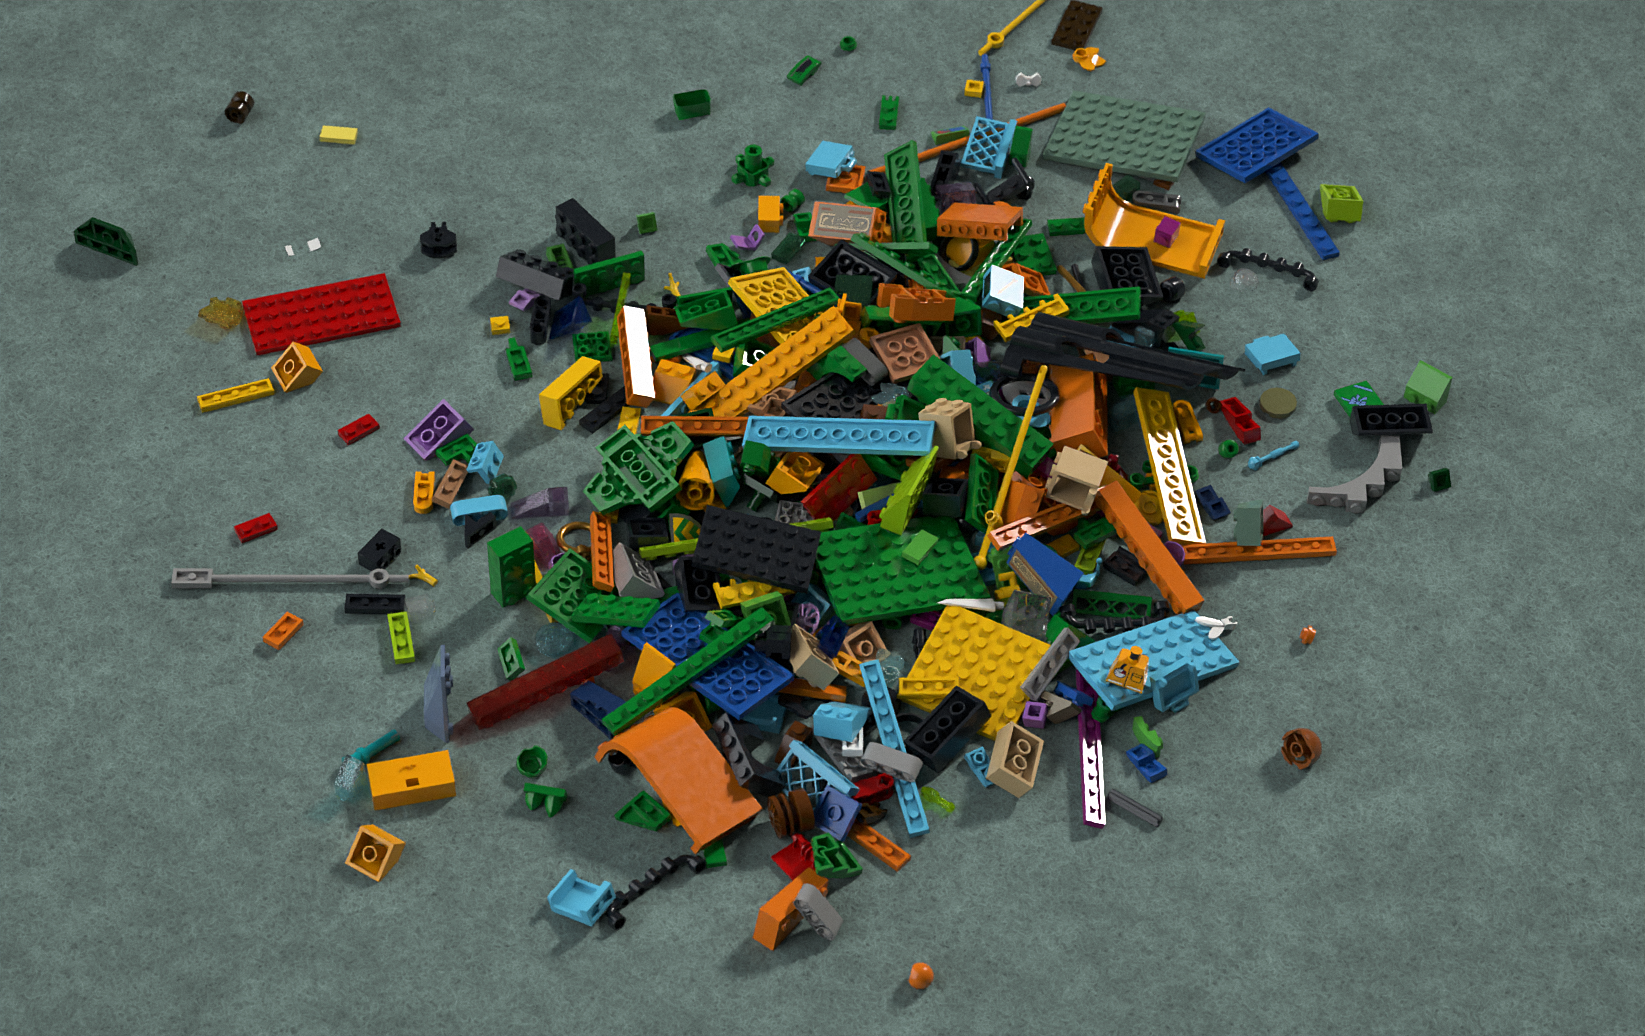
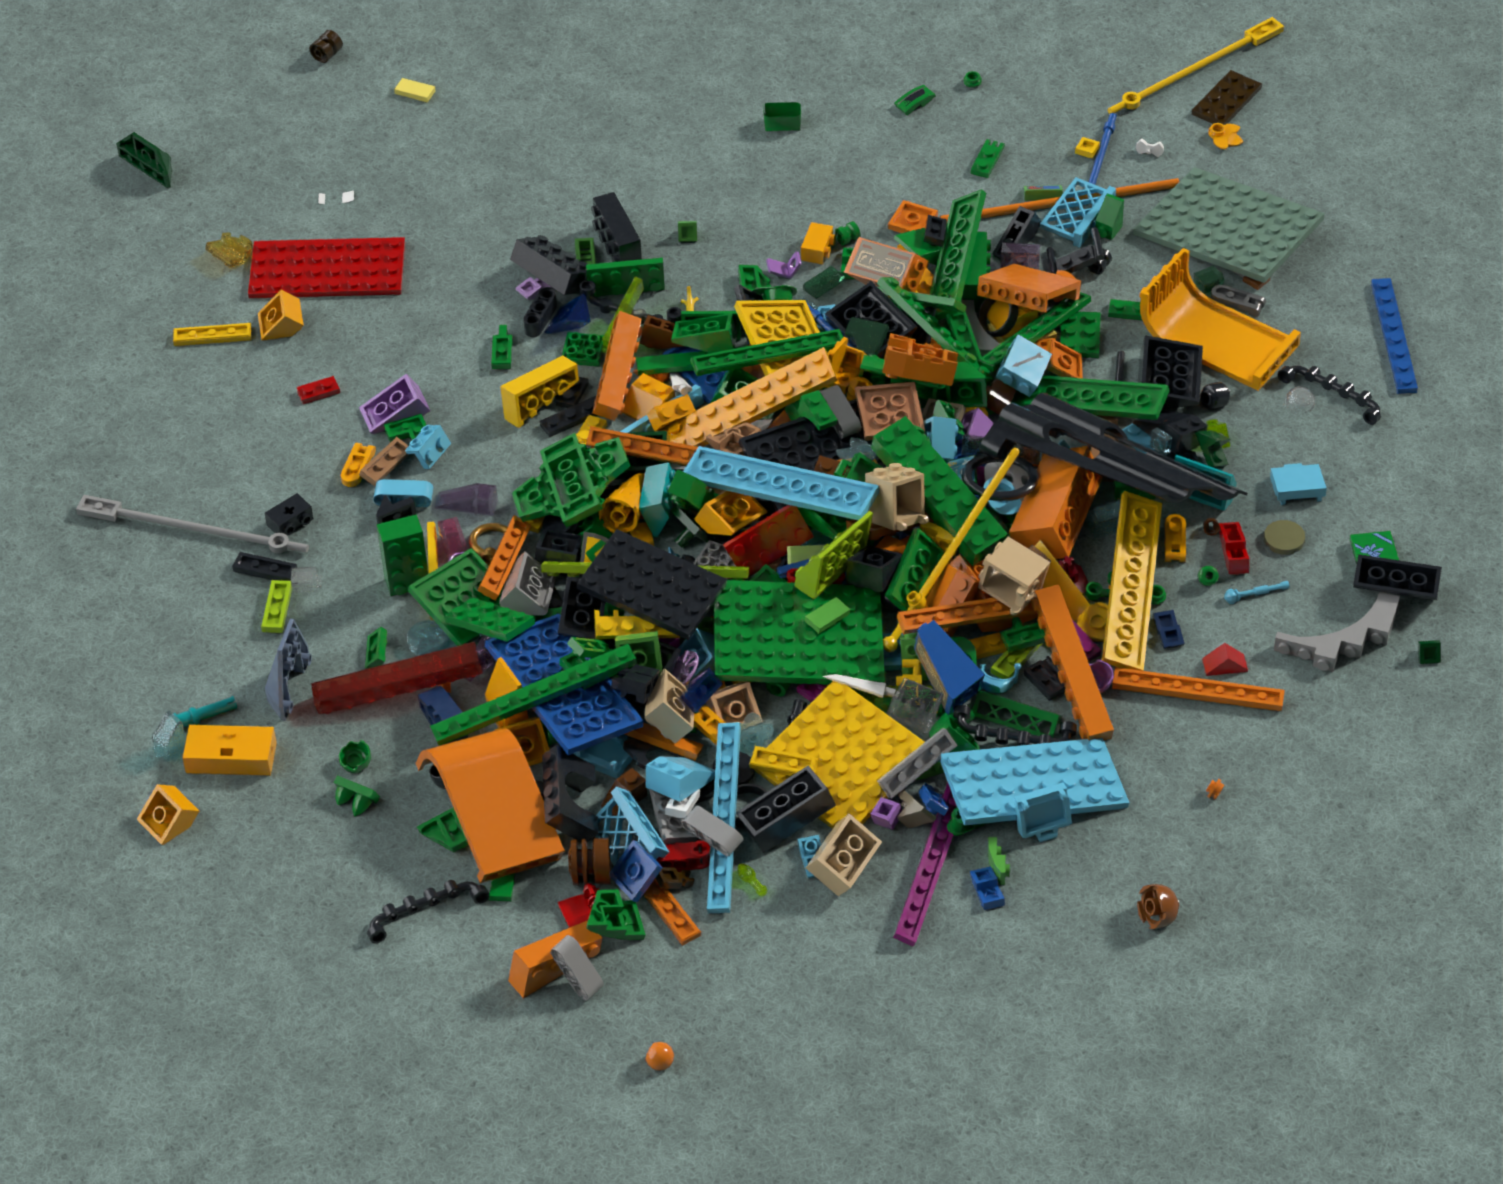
camera: 20 degrees right, 0 degrees up
(255, 528) = (180, 469): red plate -> none
(283, 630) = (165, 577): orange plate -> none
(424, 576) = (323, 548): yellow bar -> none
(438, 240) = (468, 212): black hinge -> none
(500, 325) = (499, 310): yellow plate -> none
(502, 485) = (435, 473): clear green head -> none
(580, 898) = (348, 902): medium azure panel -> none
(725, 356) = (710, 380): yellow plate -> none
(753, 168) = (818, 192): green piece -> none
(831, 159) = (902, 197): medium azure piece -> none
(1055, 307) = (1069, 393): yellow hinge -> none
(1070, 279) = (1108, 365): pearl gold bar -> none
(1129, 669) = (993, 785): light orange torso -> none
(1135, 807) = (956, 932): black axle -> none
(1167, 232) = (1233, 333): magenta brick -> none
(1218, 626) = (1118, 759): white piece -> none
(1249, 523) = (1193, 657): sand green slope -> none
(1256, 145) = (1370, 257): blue plate -> none
(1341, 203) = (1440, 335): lime slope -> none
(1428, 387) = (1454, 551): bright green slope -> none

